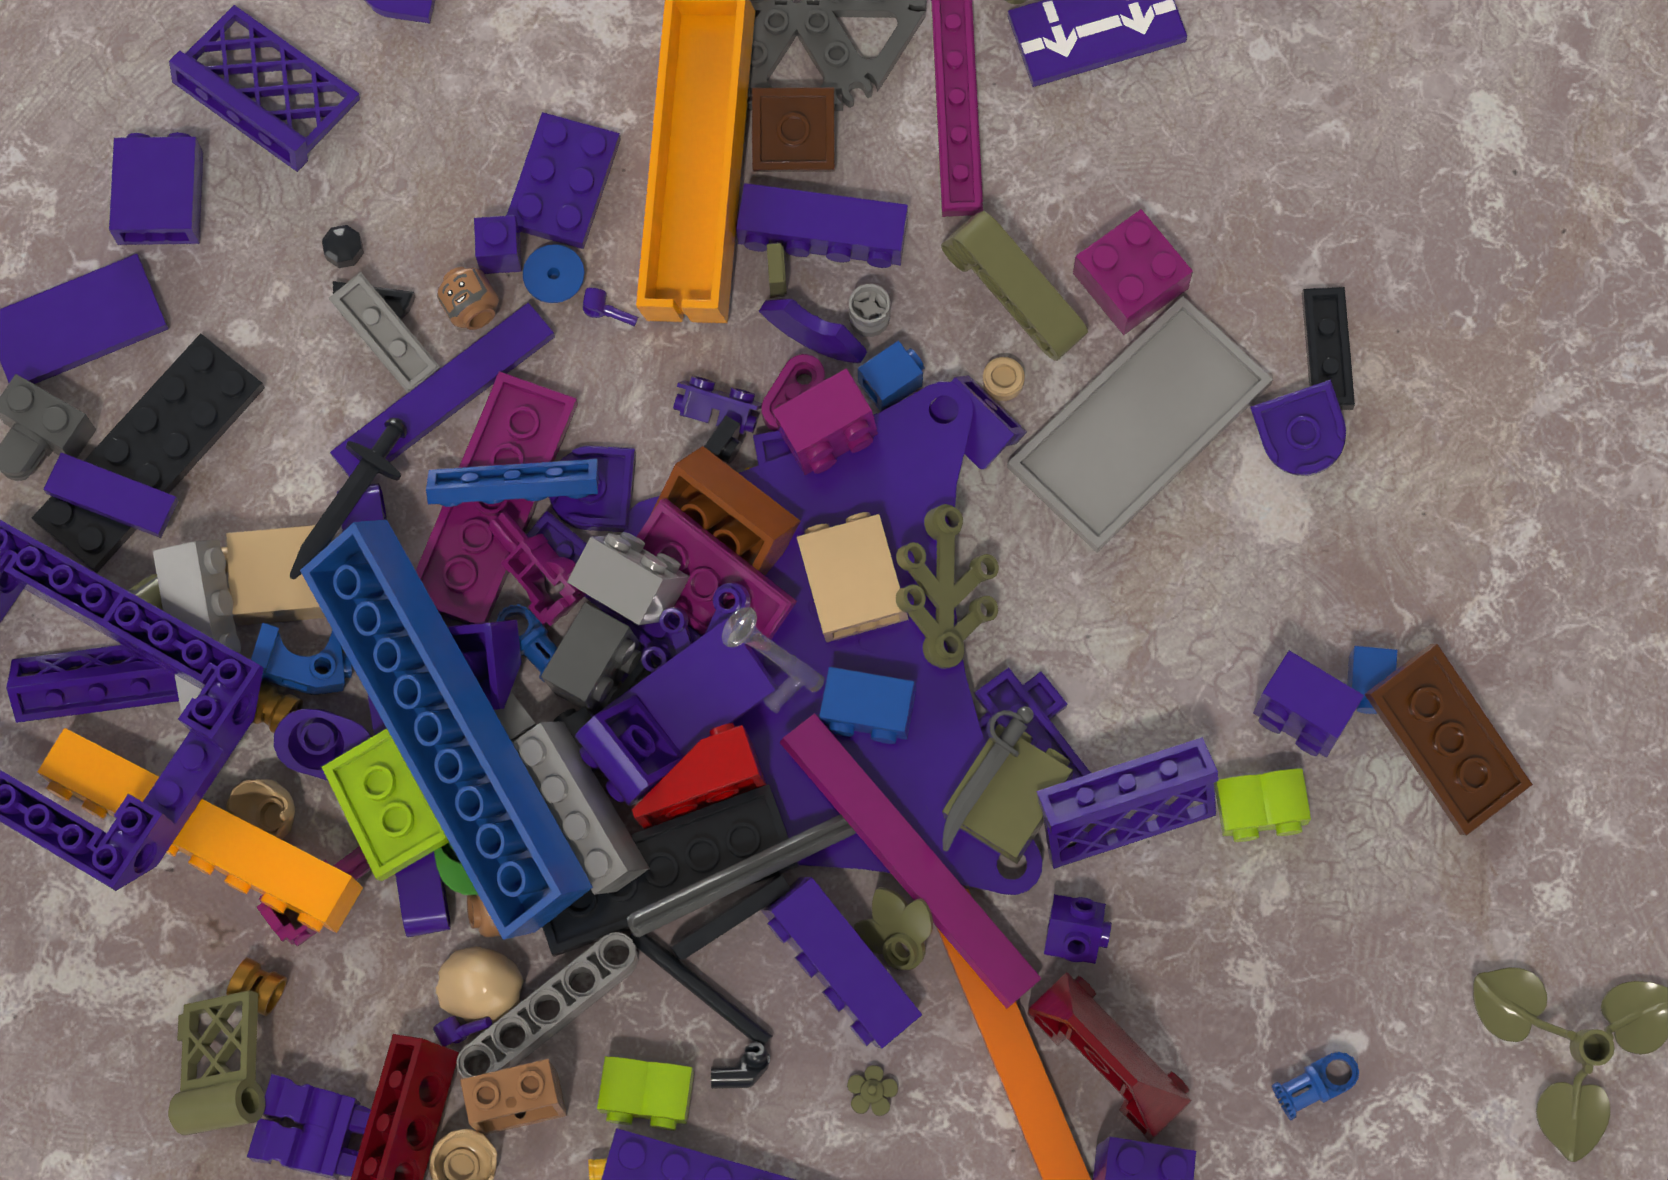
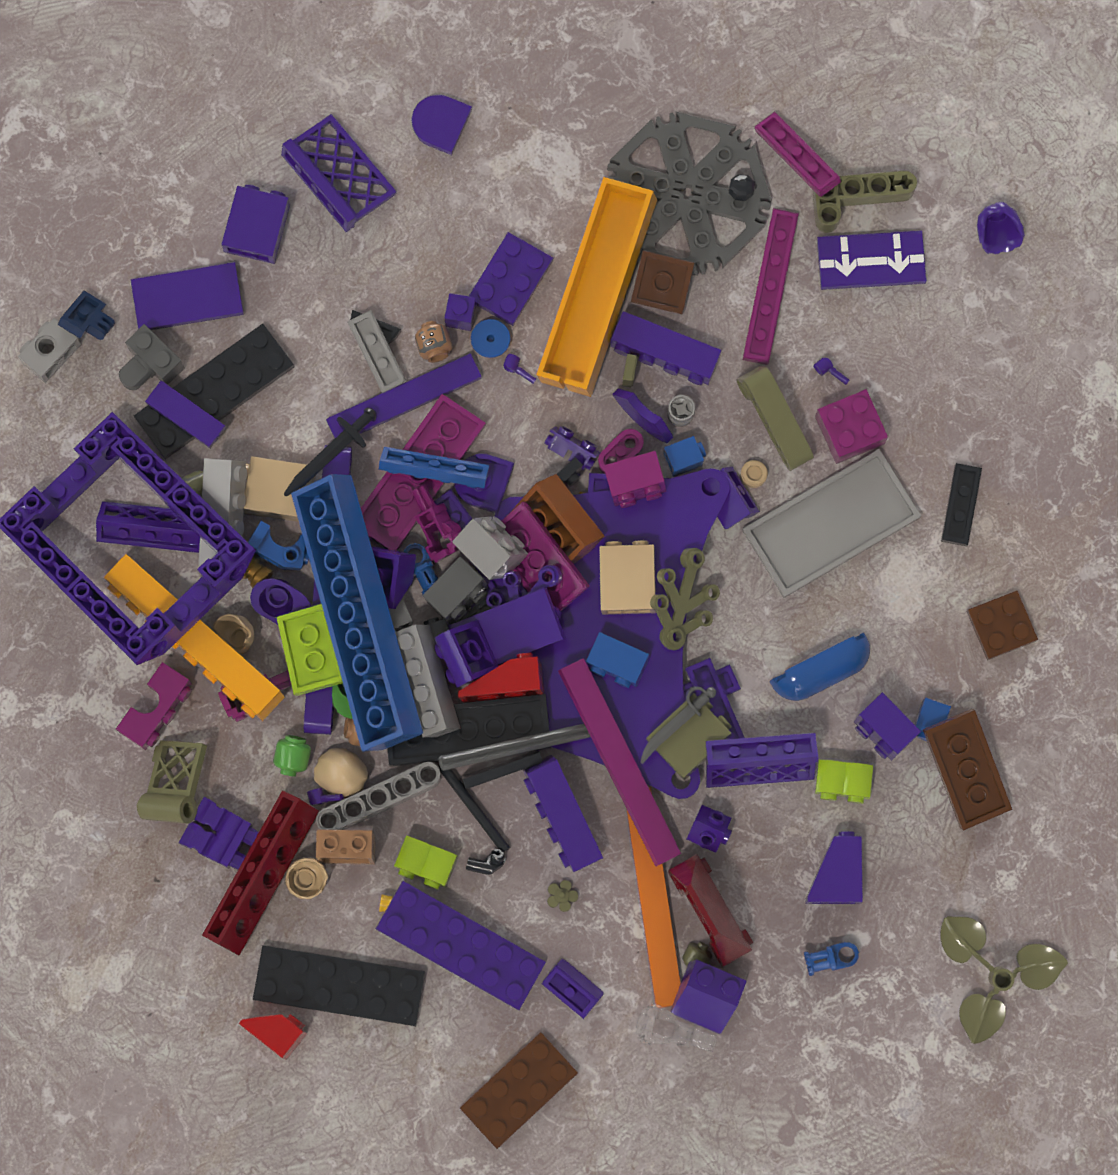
camera: 10 degrees right, 5 degrees up
(154, 990) = (145, 727): none -> magenta arch
(252, 977) = (205, 735): pearl gold wheel -> none
(342, 246) = (363, 288): black tile -> none
(396, 976) = (292, 755): none -> bright green head
(742, 629) = (551, 598): clear piece -> none
(895, 924) = (601, 799): olive plate -> none
(1070, 192) = (825, 365): none -> dark purple hand
(1103, 1126) = (697, 952): none -> olive piece
(1185, 644) = (823, 669): none -> blue brick
(1294, 948) = (839, 872): none -> dark purple slope
(1302, 429) = (930, 552): dark purple tile -> none
(1439, 512) = (1002, 625): none -> reddish brown plate

